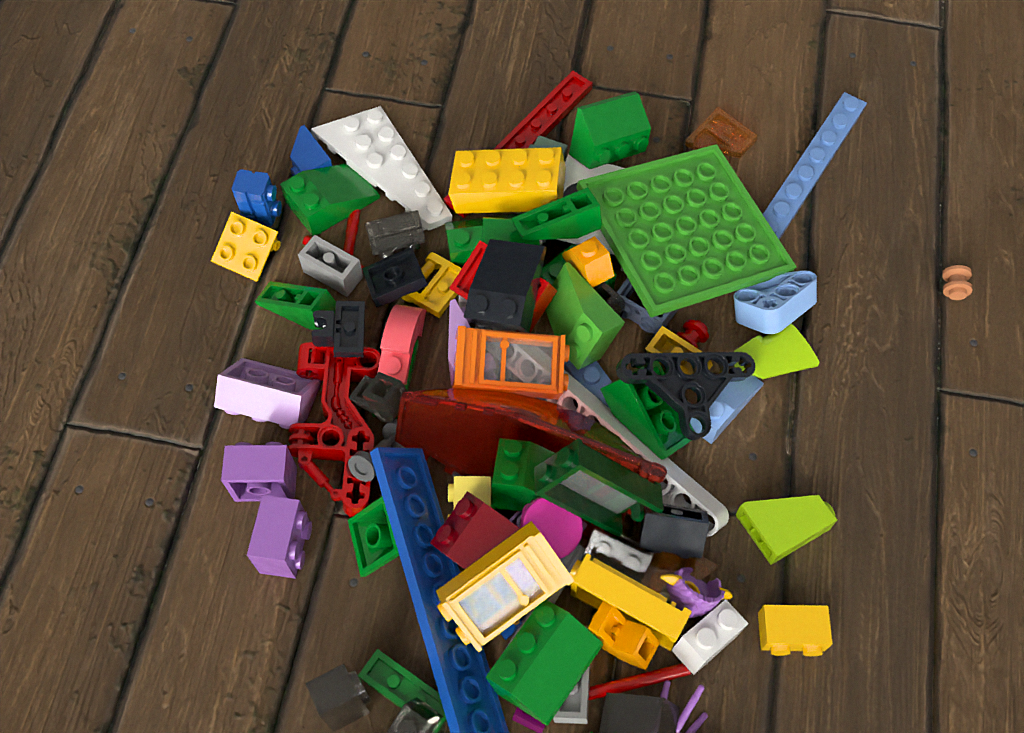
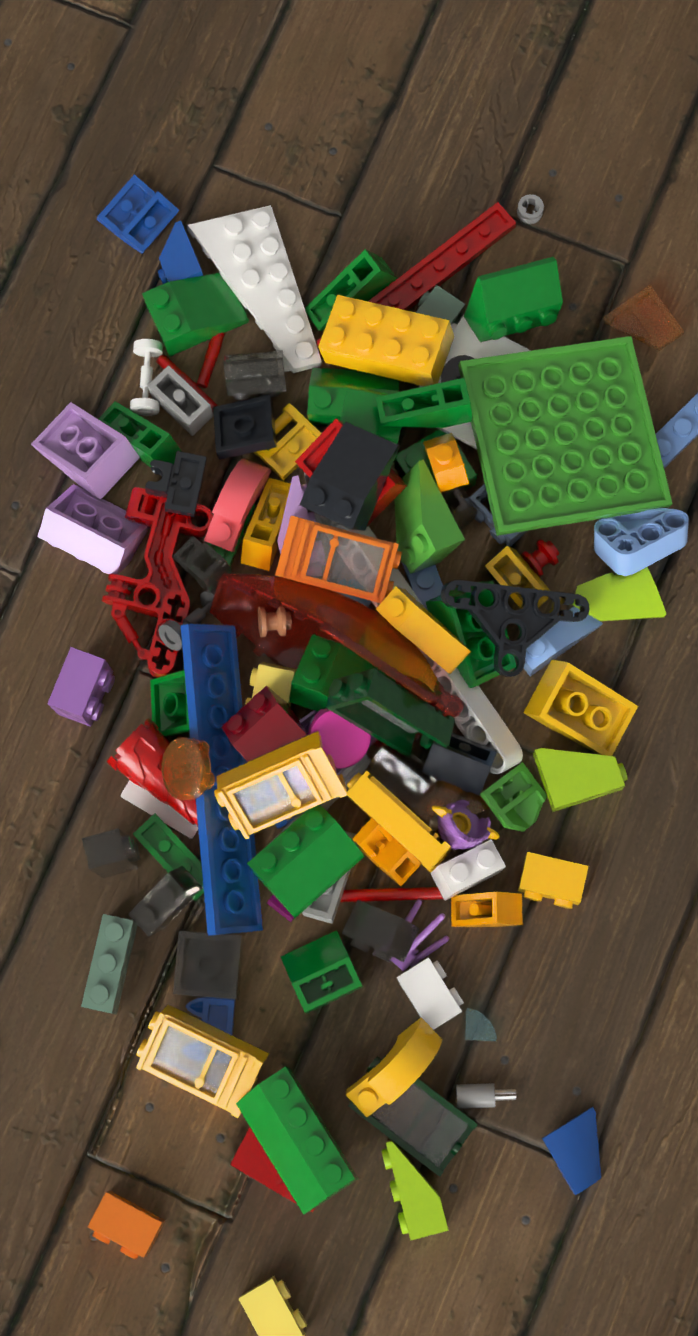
camera: 20 degrees right, 15 degrees up
(245, 246) = (94, 356): yellow hinge -> none
(251, 324) = (86, 450): none -> lavender slope
(256, 197) = (114, 304): blue brick -> none
(258, 471) = (72, 617): medium lavender brick -> none
(264, 132) = (137, 214): none -> blue slope
(292, 232) = (146, 348): none -> white wheel
(372, 603) = (141, 763): none -> red cone
(394, 646) = (151, 805): none -> white sticker
(404, 589) = (187, 768): none -> clear orange tile
(432, 355) = (263, 530): none -> yellow slope
(465, 435) = (273, 621): none -> nougat wheel
(472, 136) = (359, 280): none -> green slope
(600, 81) = (521, 211): none -> light grey bush
(607, 409) = (423, 629): none -> yellow slope
(734, 557) = (515, 799): none -> bright green slope
(738, 674) = (486, 910): none -> light orange slope
(767, 459) = (580, 708): none -> yellow slope

